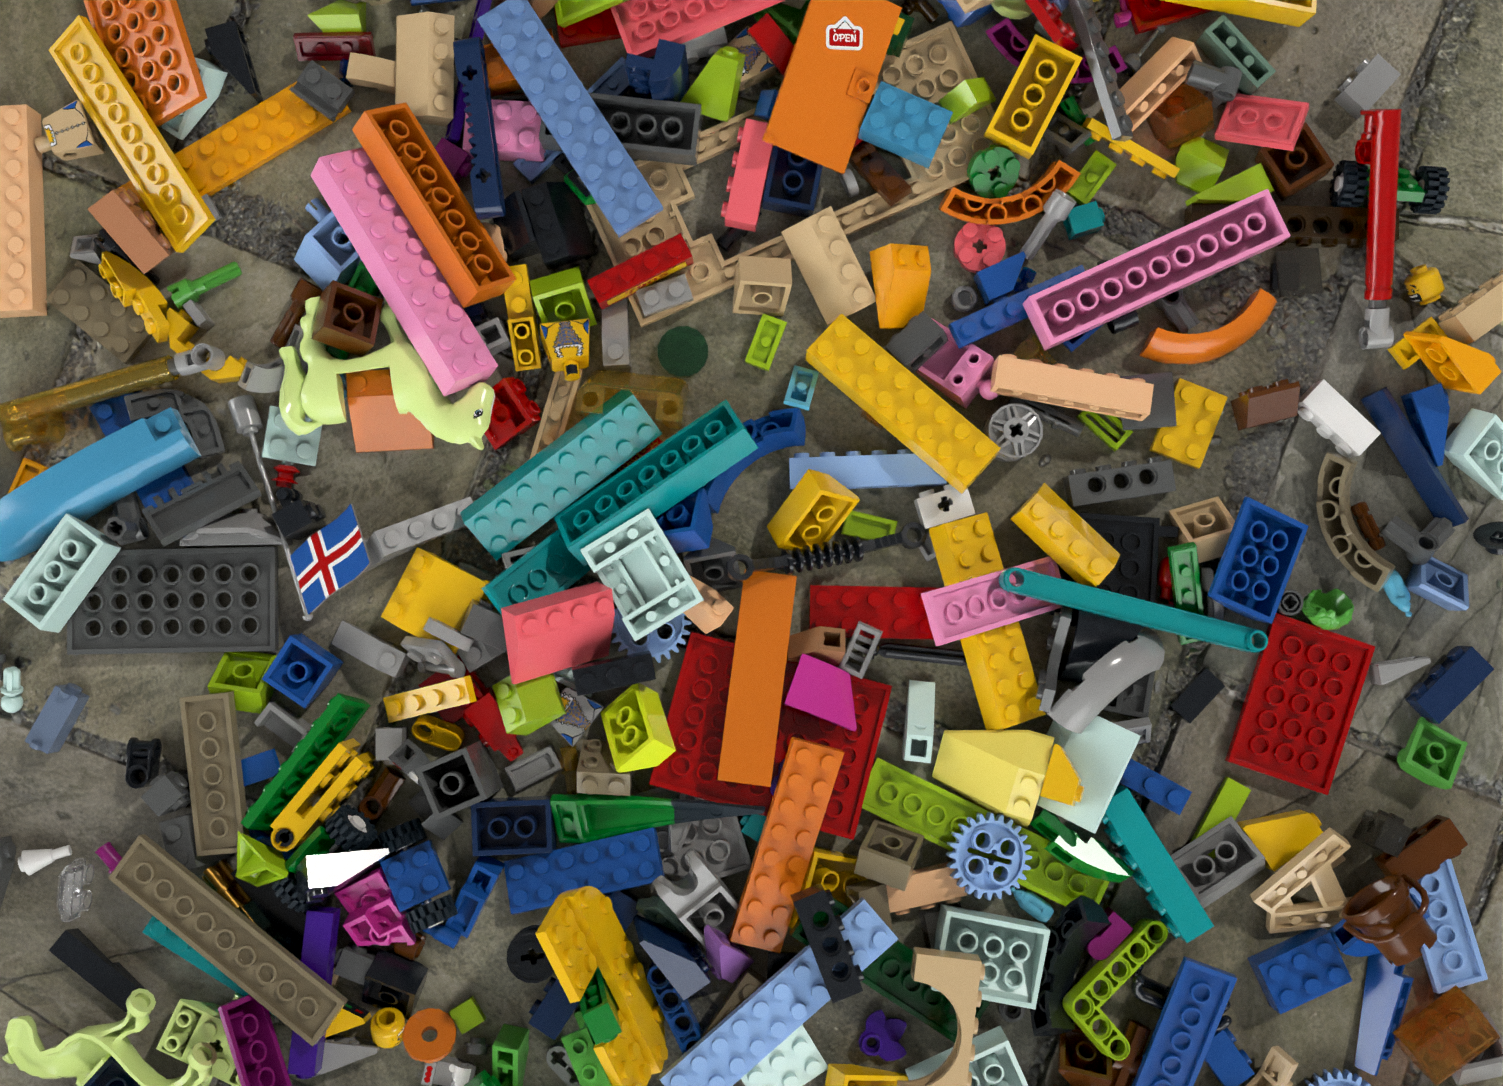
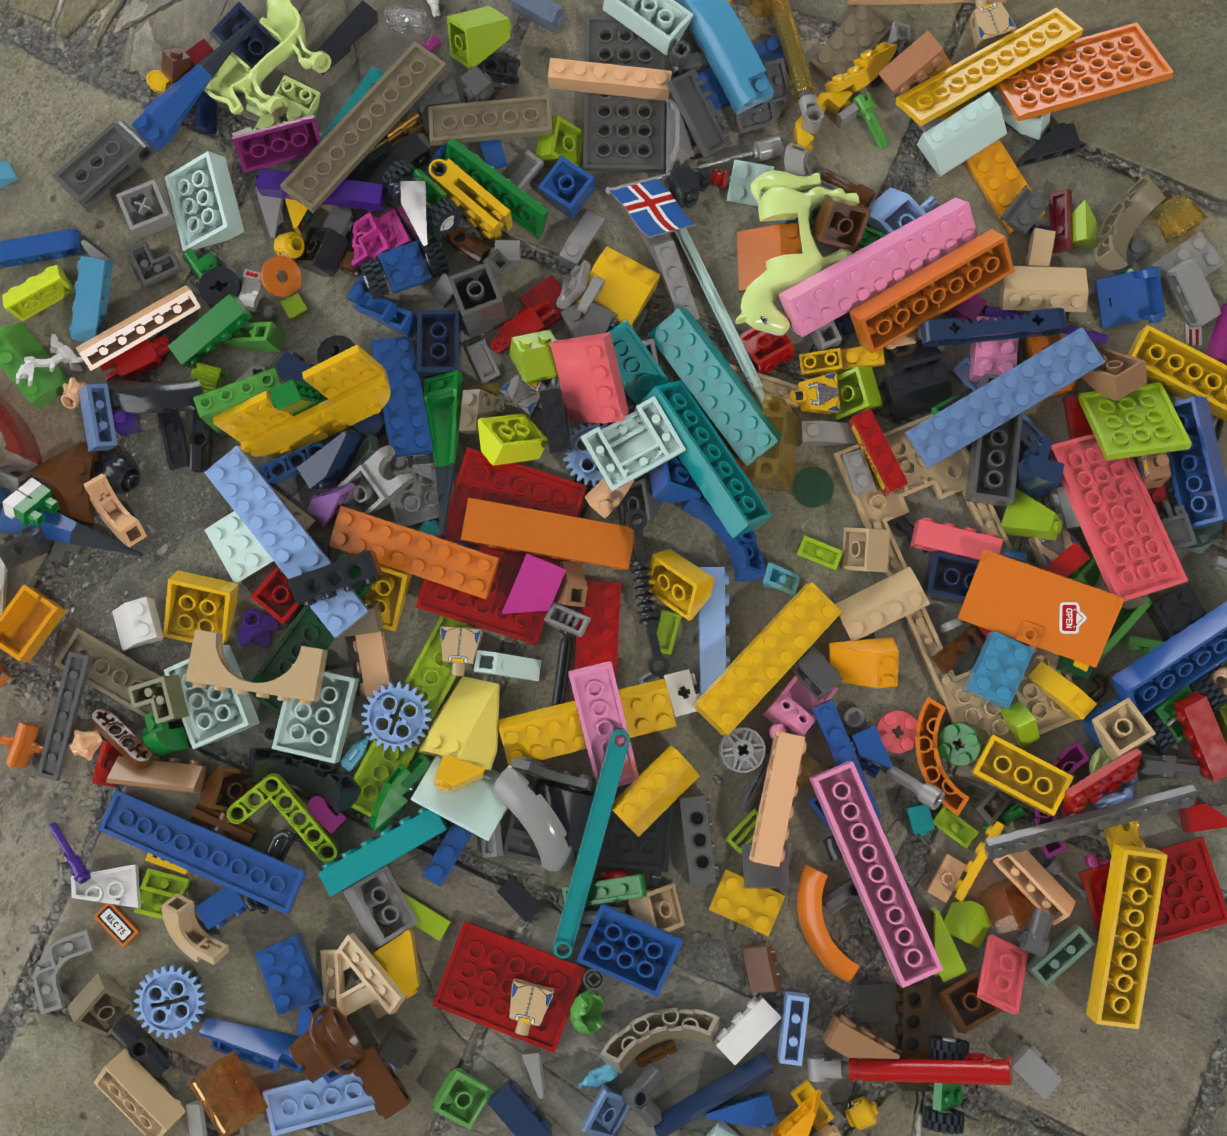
camera: 90 degrees right, 5 degrees down
(96, 796) = (477, 34): none -> lime slope
(155, 621) = (609, 79): none -> light nougat brick
(223, 166) = (963, 134): none -> light aqua slope
(258, 862) = (421, 150): lime slope -> none
(429, 699) = (541, 281): yellow plate -> none
(442, 734) = (513, 292): yellow piece -> none
(466, 468) = (721, 313): none -> light aqua axle
(848, 1016) = (277, 597): none -> red brick
(888, 854) = (402, 635): dark tan slope -> none
(901, 781) = (460, 647): none -> tan torso
(927, 49) = (1061, 691): none -> yellow slope
(1149, 188) = (946, 878): none -> light nougat plate
(1323, 678) = (528, 1004): none -> tan torso
(1334, 365) = (793, 1028): none -> light blue brick
(1347, 290) = (856, 1042): none -> medium nougat slope

